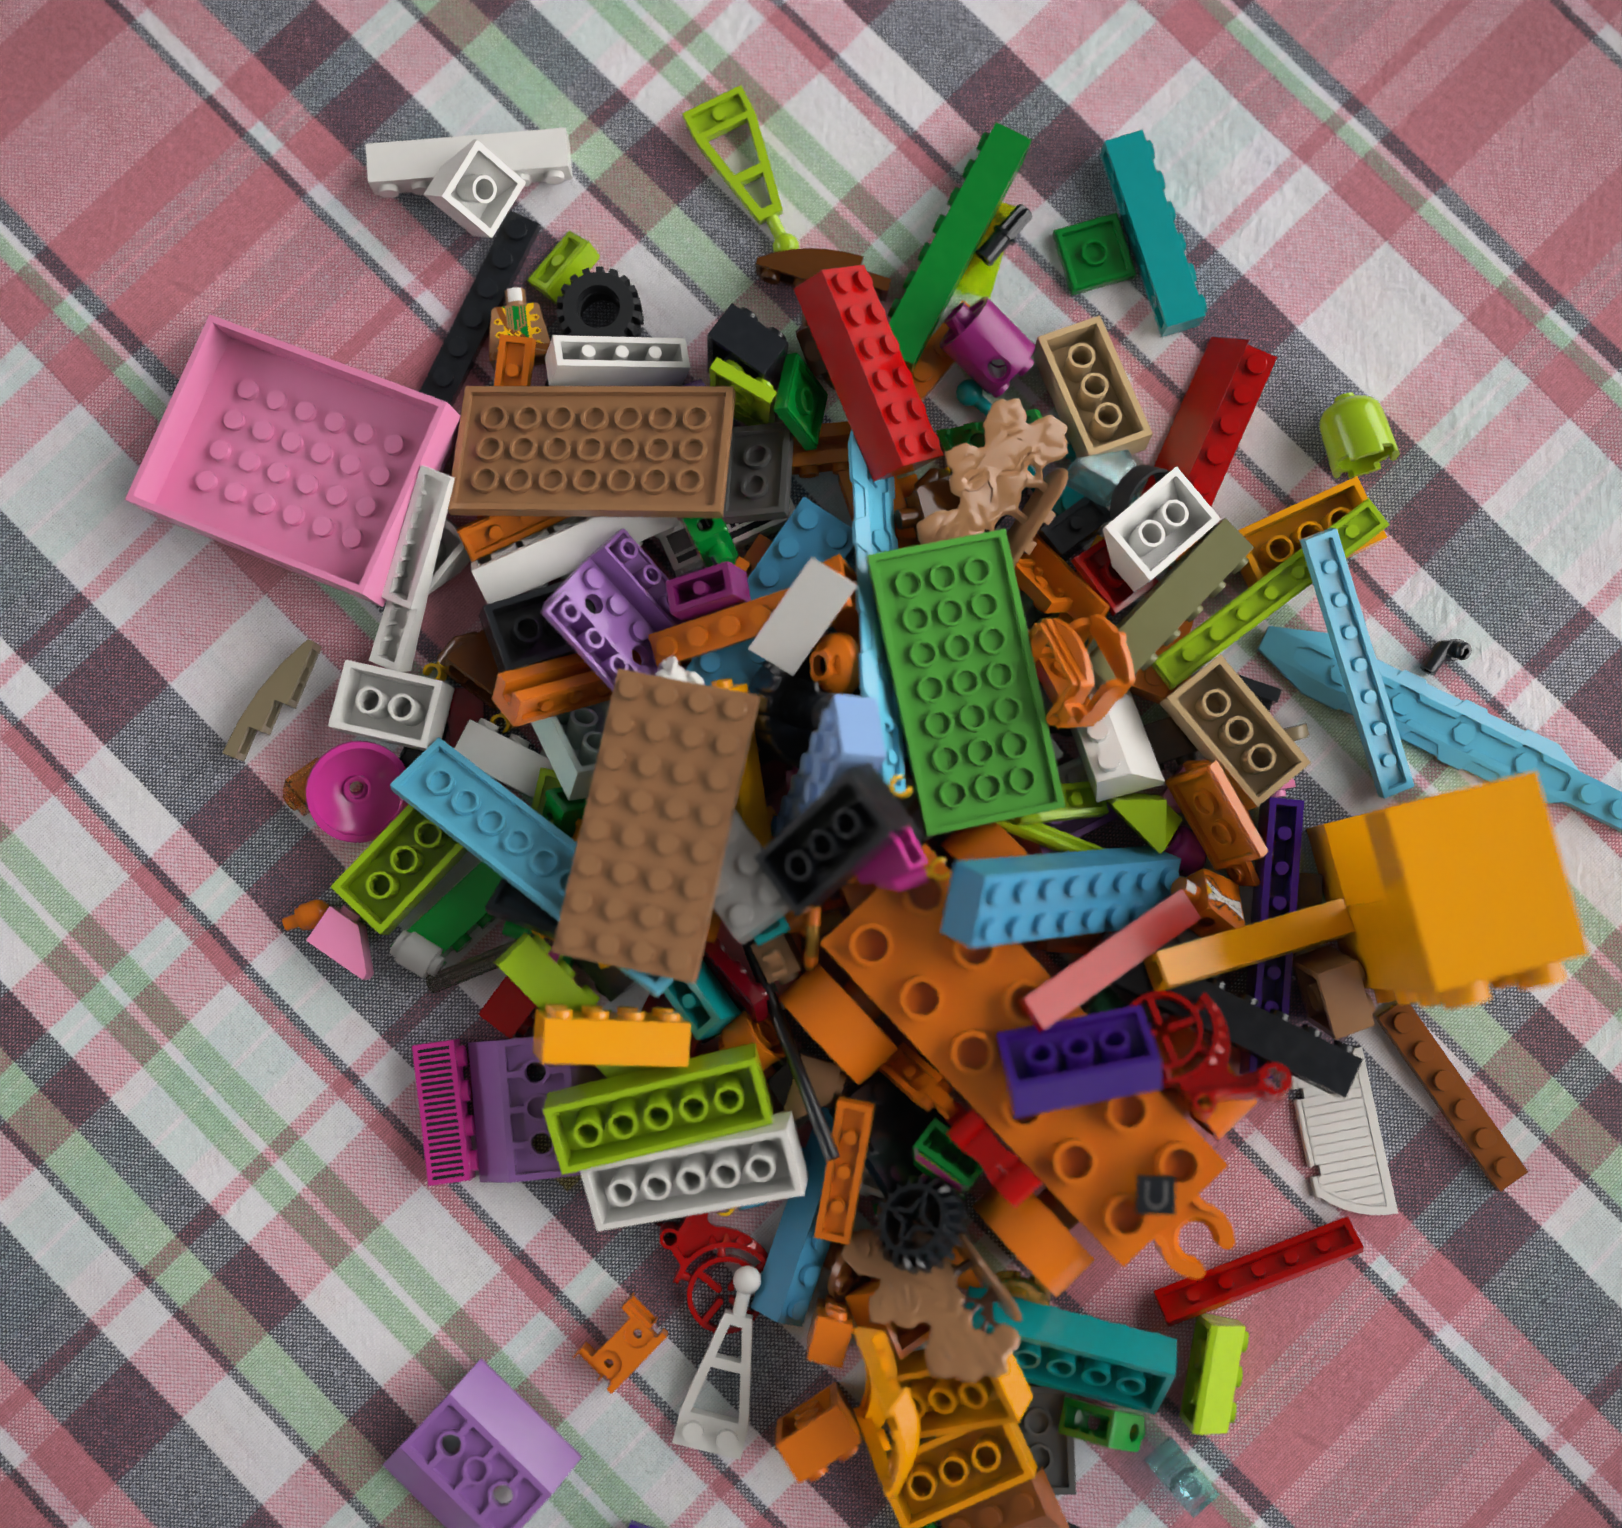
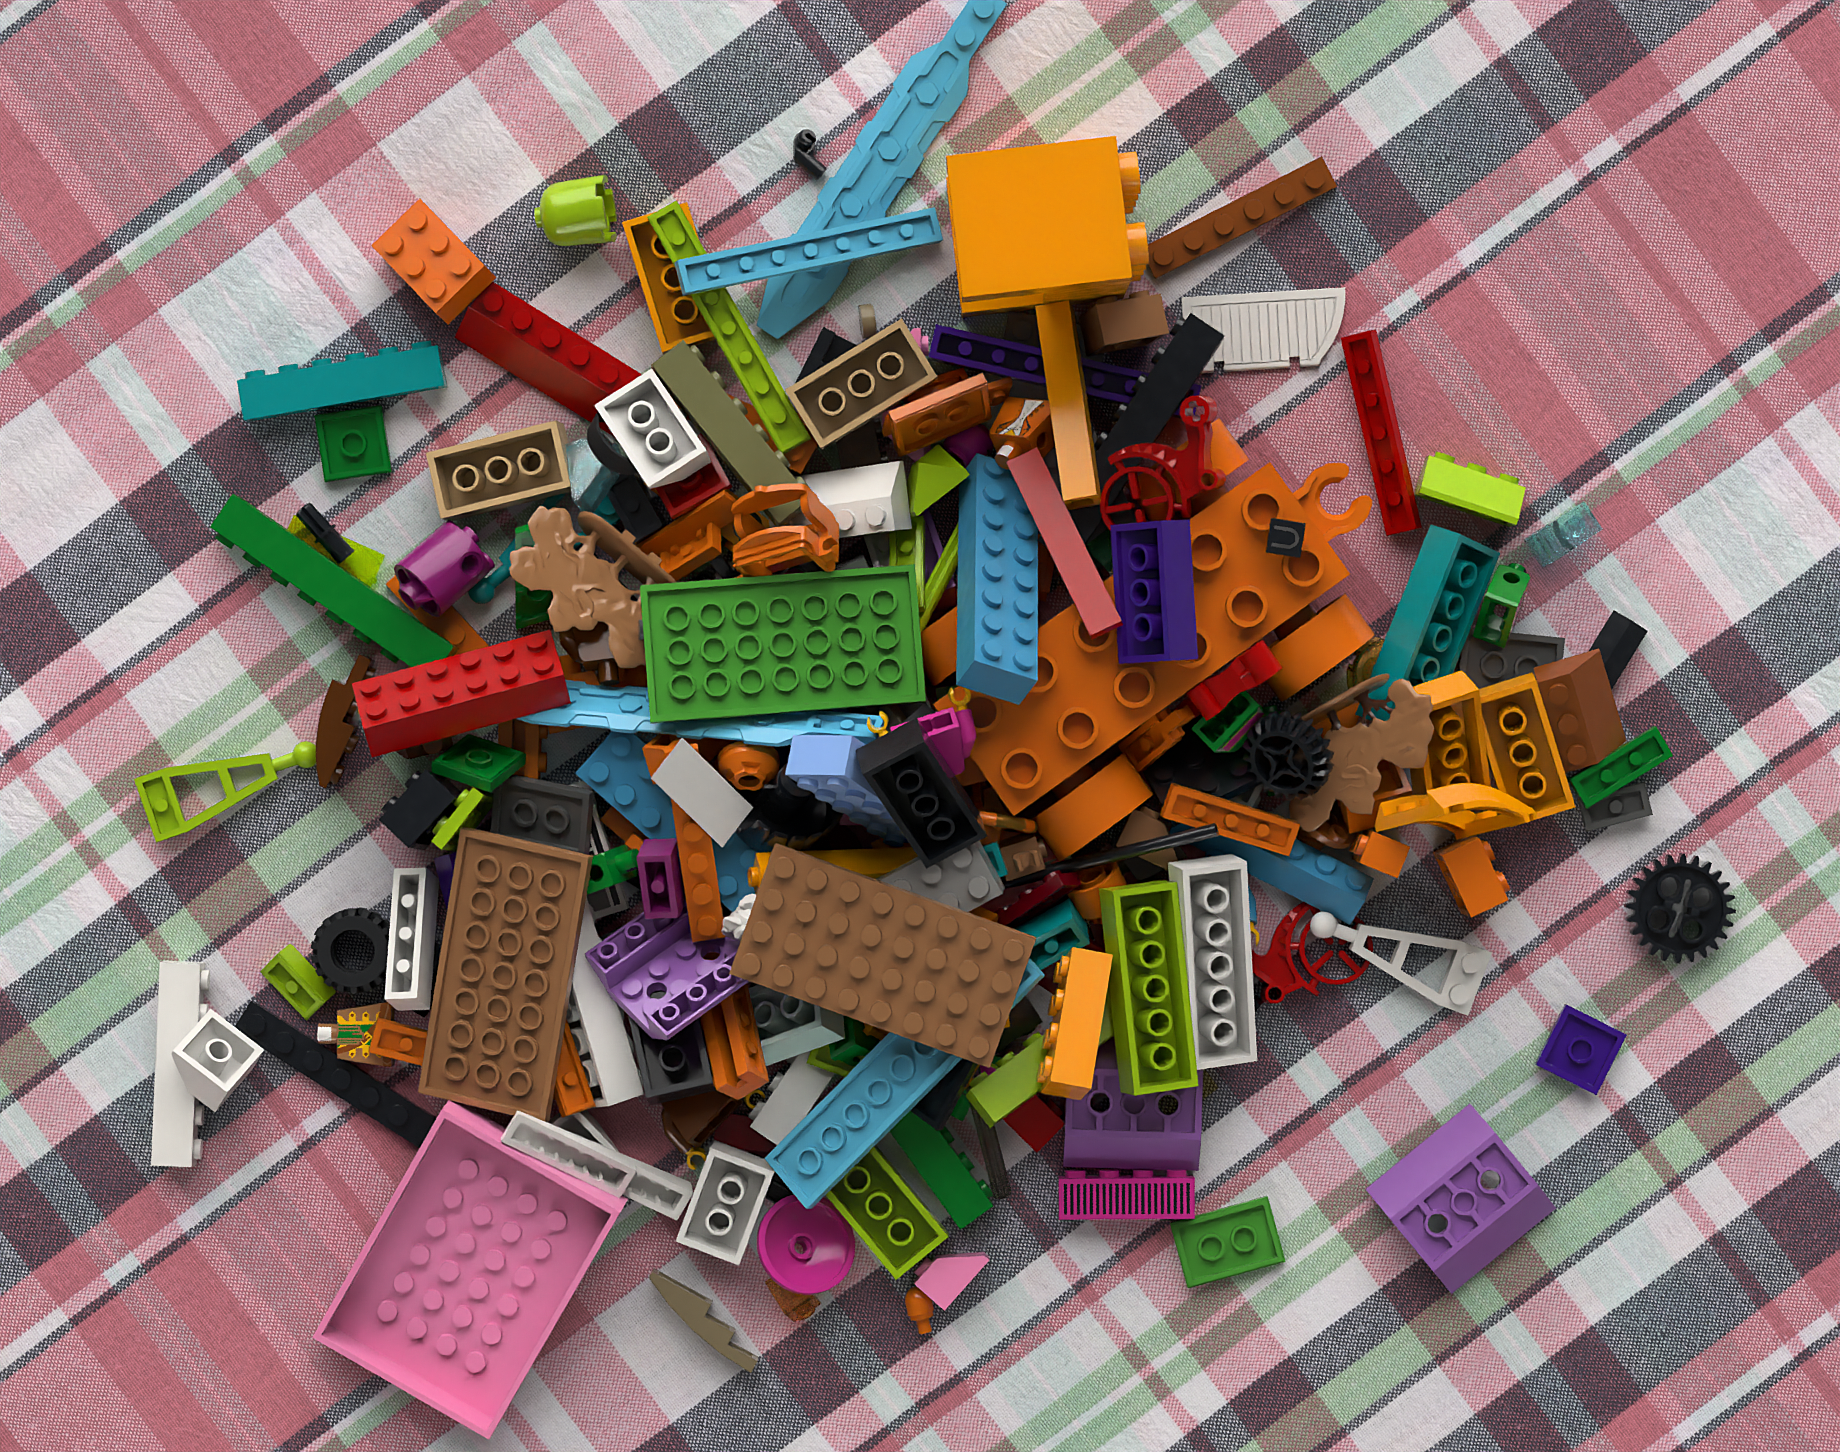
camera: 80 degrees left, 5 degrees up
(410, 1222) = (1227, 1242): none -> bright green tile
(417, 954) = (972, 1202): light grey brick -> none
(625, 1346) = (1370, 1049): orange piece -> none
(1287, 301) = (433, 261): none -> orange brick

